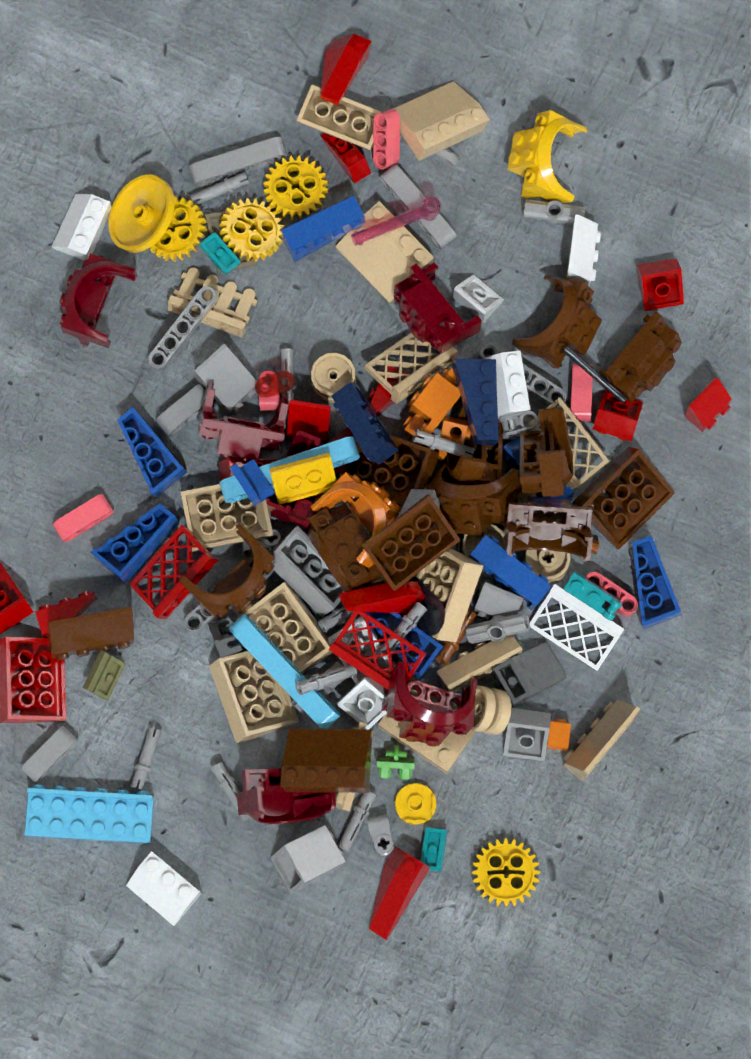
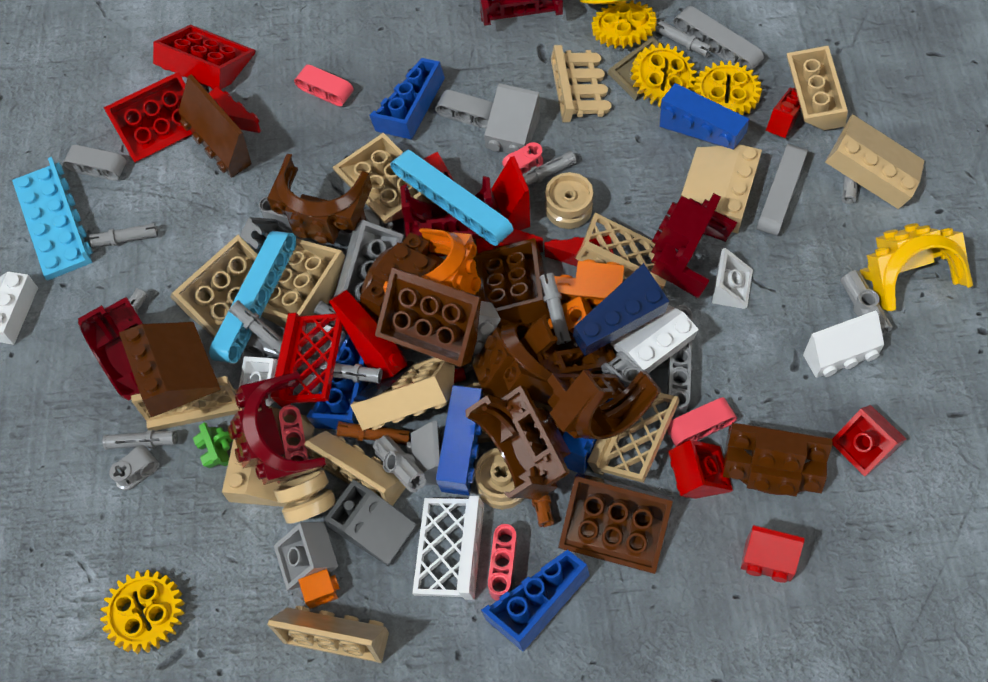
camera: 65 degrees right, 15 degrees down
(104, 675) = (185, 165): olive plate -> none
(136, 543) = (320, 130): blue wedge -> none
(175, 332) = (538, 64): light grey beam -> none
(178, 593) = (308, 178): red fence -> none
(219, 253) = (623, 59): teal plate -> none
(240, 436) = (459, 144): piece -> none
(253, 482) = (415, 166): blue panel -> none
(274, 384) = (530, 154): clear red plate -> none
(303, 478) = (445, 204): yellow tile -> none
(308, 859) = (79, 413): slope -> none
(341, 66) = (865, 65): red wedge -> none
(364, 424) = (531, 235): dark blue wedge -> none
(386, 139) = (825, 125): coral beam -> none
(397, 886) = (84, 513): red wedge -> none
(399, 221) = (783, 188): clear pink piece -> none
(415, 804) = (183, 486): yellow tile -> none
(434, 848) = (138, 526): teal plate -> none
(572, 326) = (758, 367): reddish brown piece -> none
(593, 595) = (486, 541): teal plate -> none
(594, 374) = (724, 417): black bar -> none

